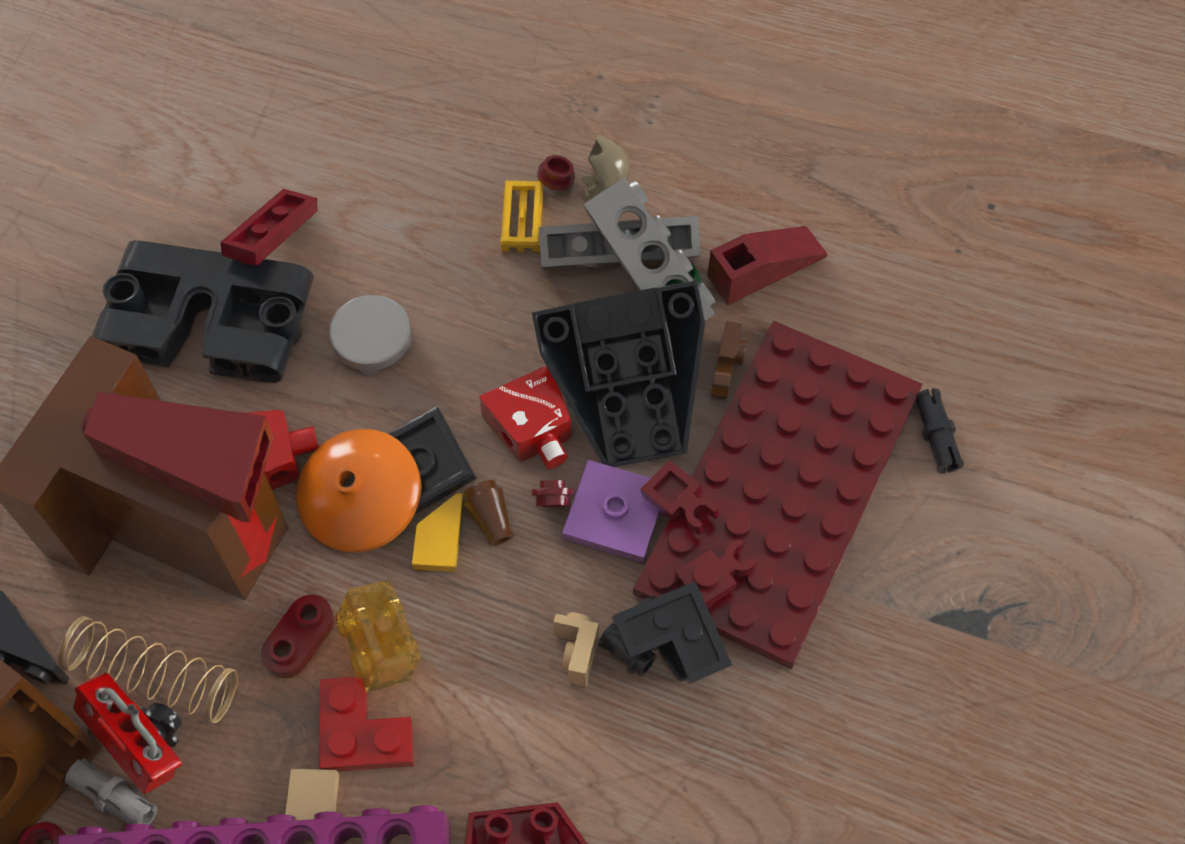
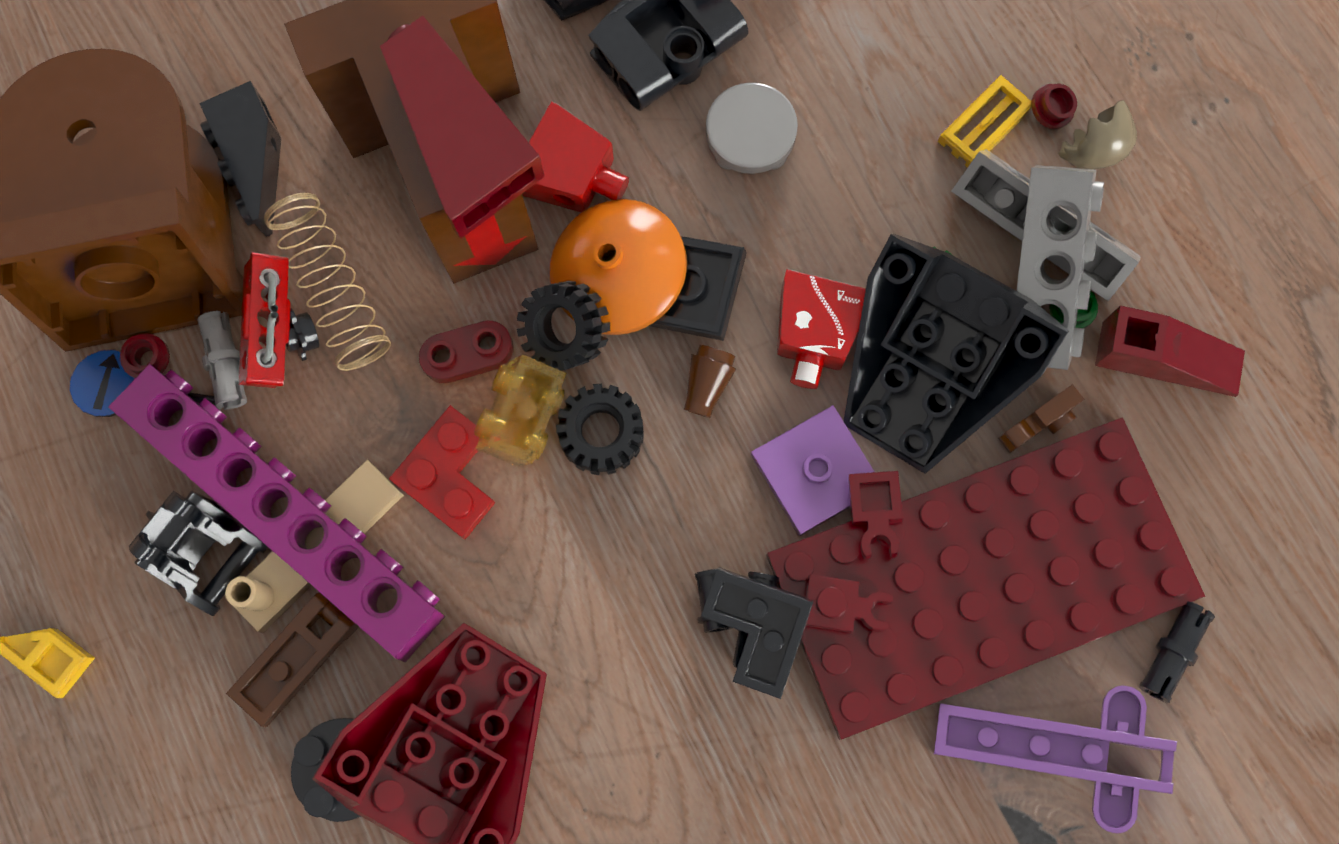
camera: 45 degrees right, 15 degrees up
(360, 528) = (539, 327): none -> black tyre
(439, 537) = (649, 365): yellow tile -> none
(451, 629) = (600, 401): none -> black tyre
(552, 494) = (774, 410): dark red plate -> none
(579, 654) = (669, 570): tan bracket -> none
(932, 543) = (1064, 749): none -> medium lavender piece

